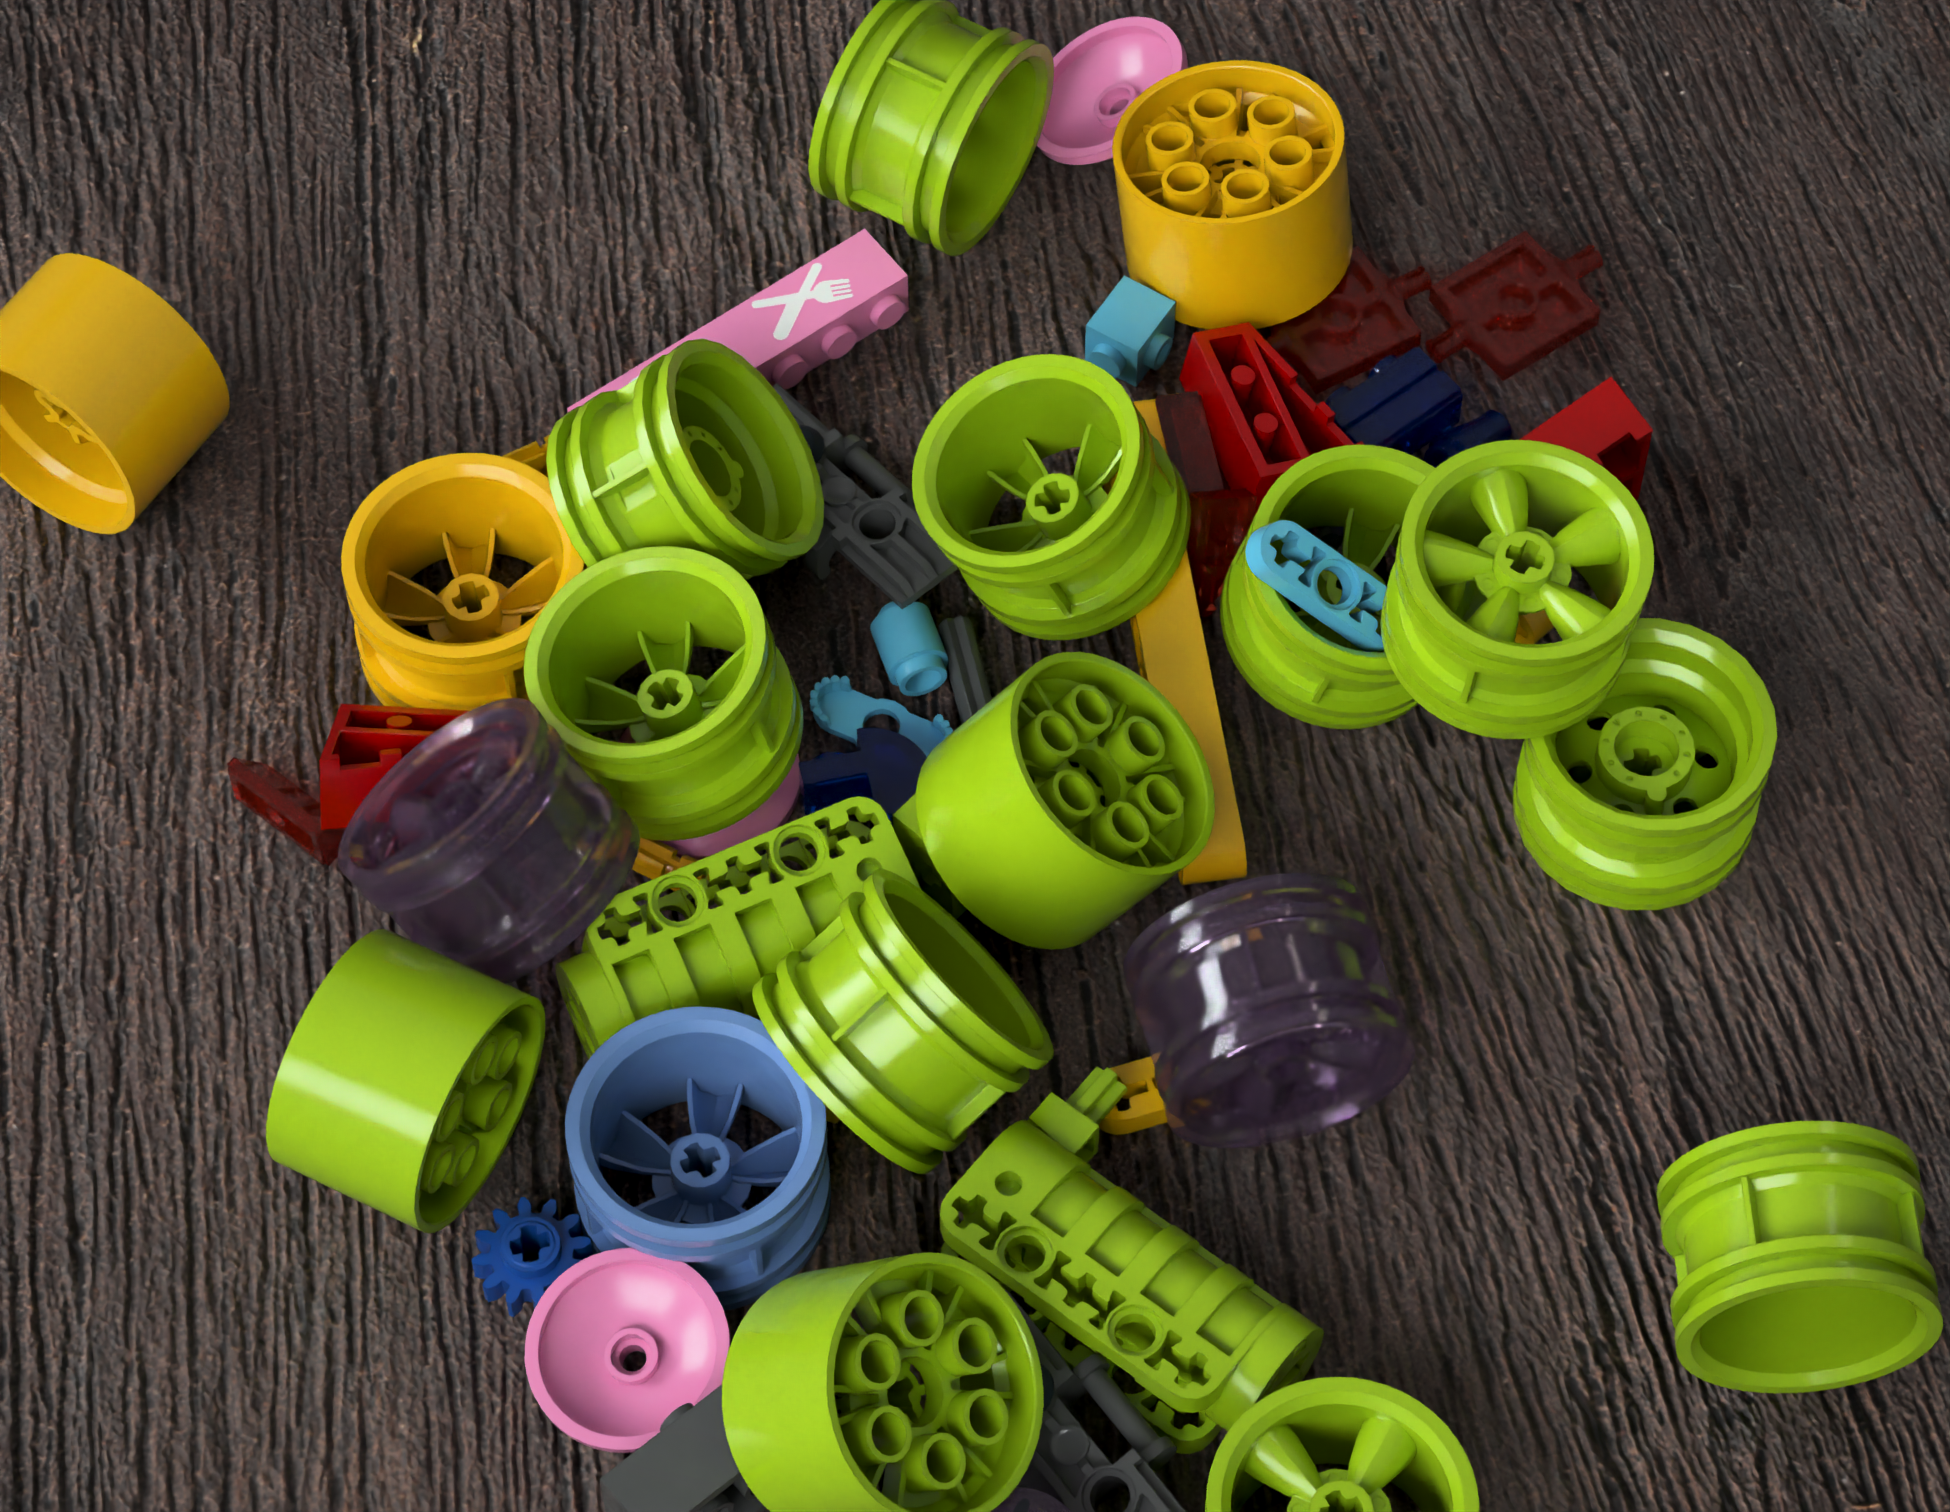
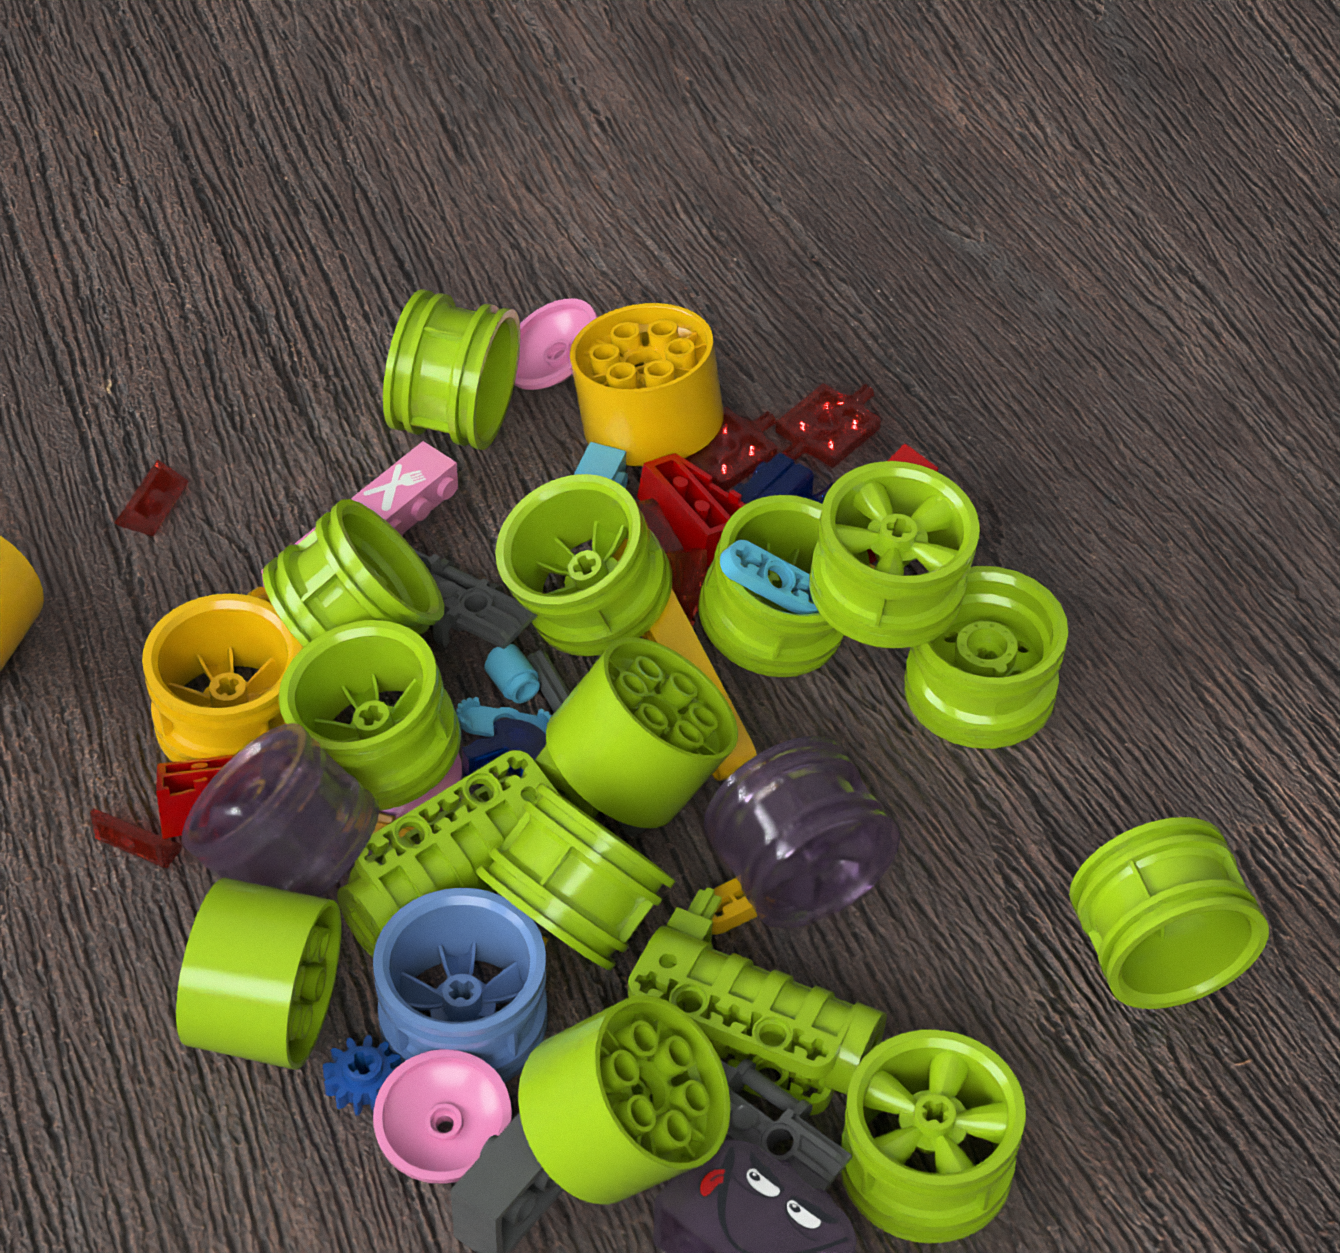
camera: 15 degrees left, 10 degrees down
(438, 250) = (152, 500): none -> clear red slope

